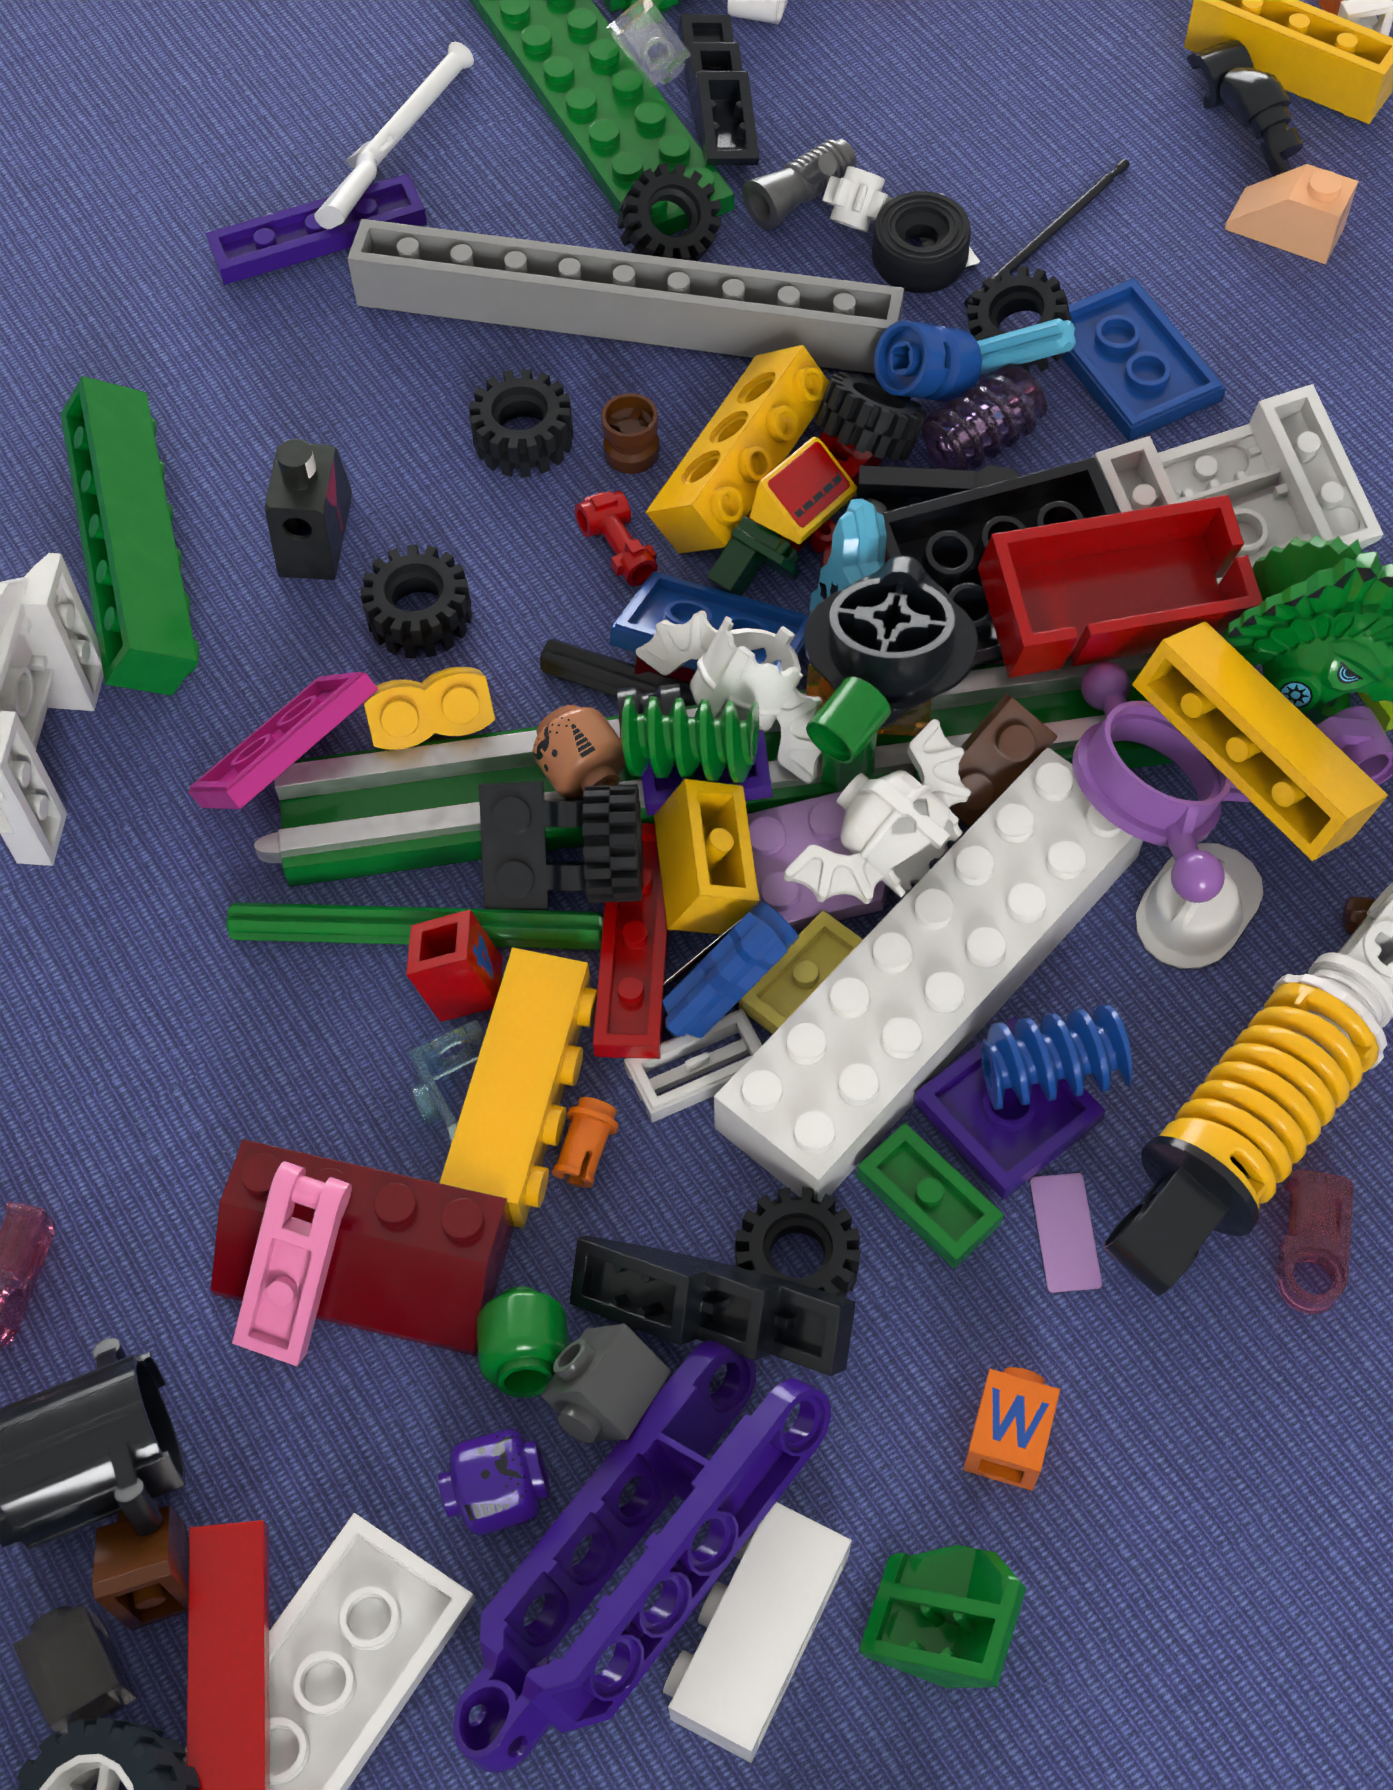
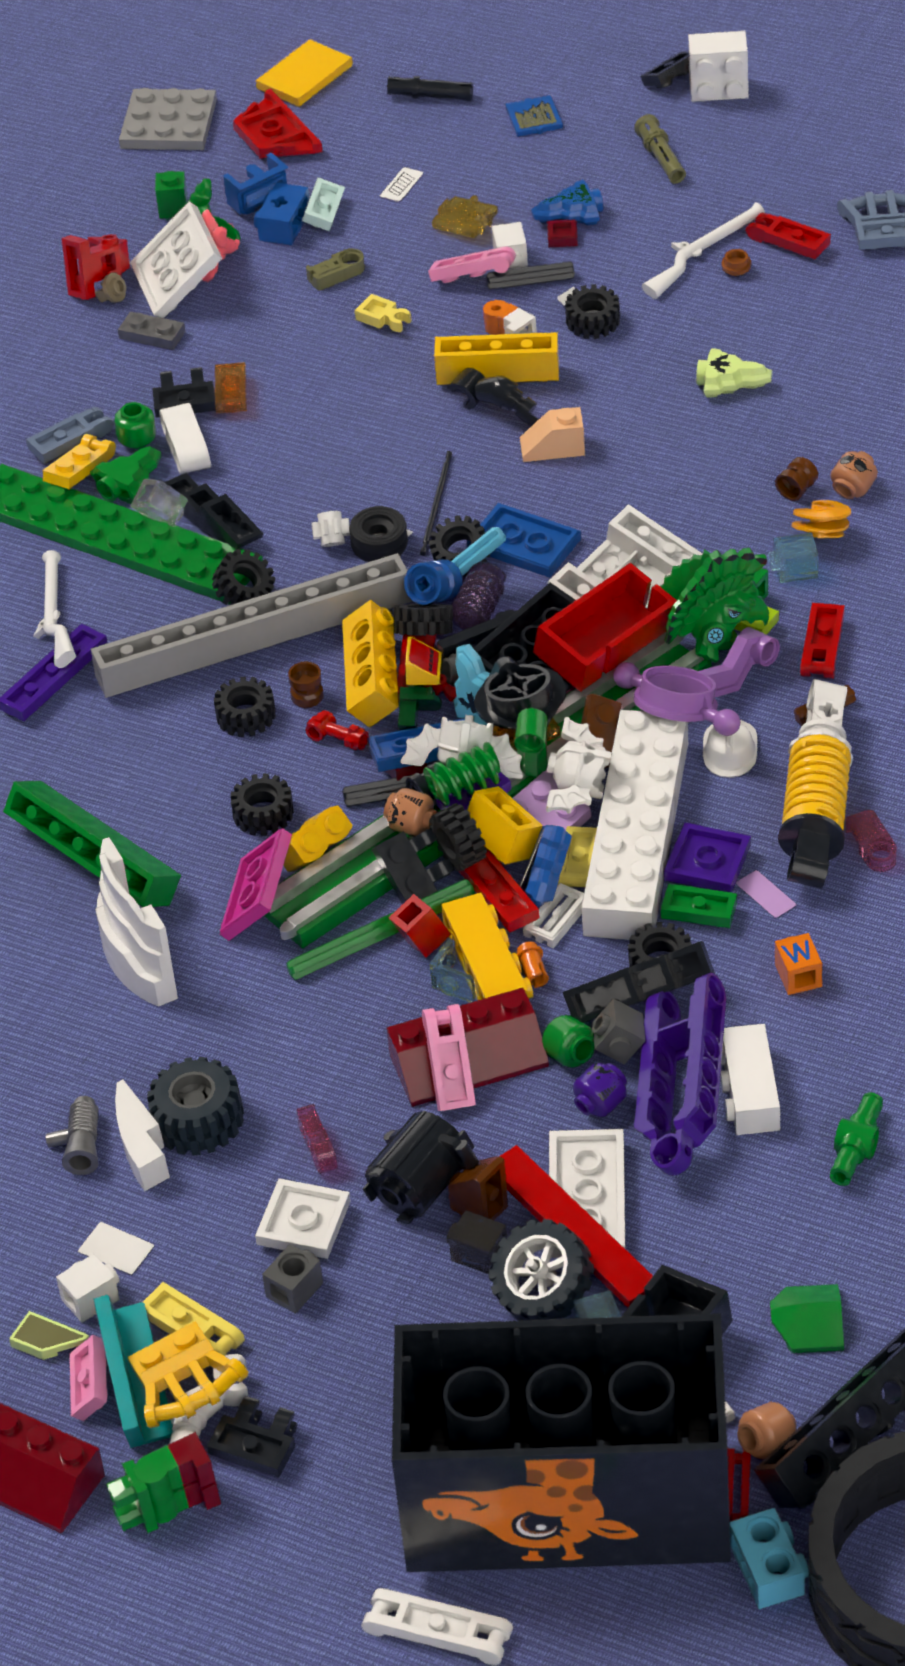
camera: 30 degrees left, 15 degrees down
(306, 489) = (166, 777): pearl dark grey torso -> none
(777, 194) = (285, 547): flat silver piece -> none
(945, 1616) = (821, 1038): green slope -> none
(1055, 1053) = (717, 819): blue piece -> none
(1259, 740) = (713, 657): yellow brick -> none

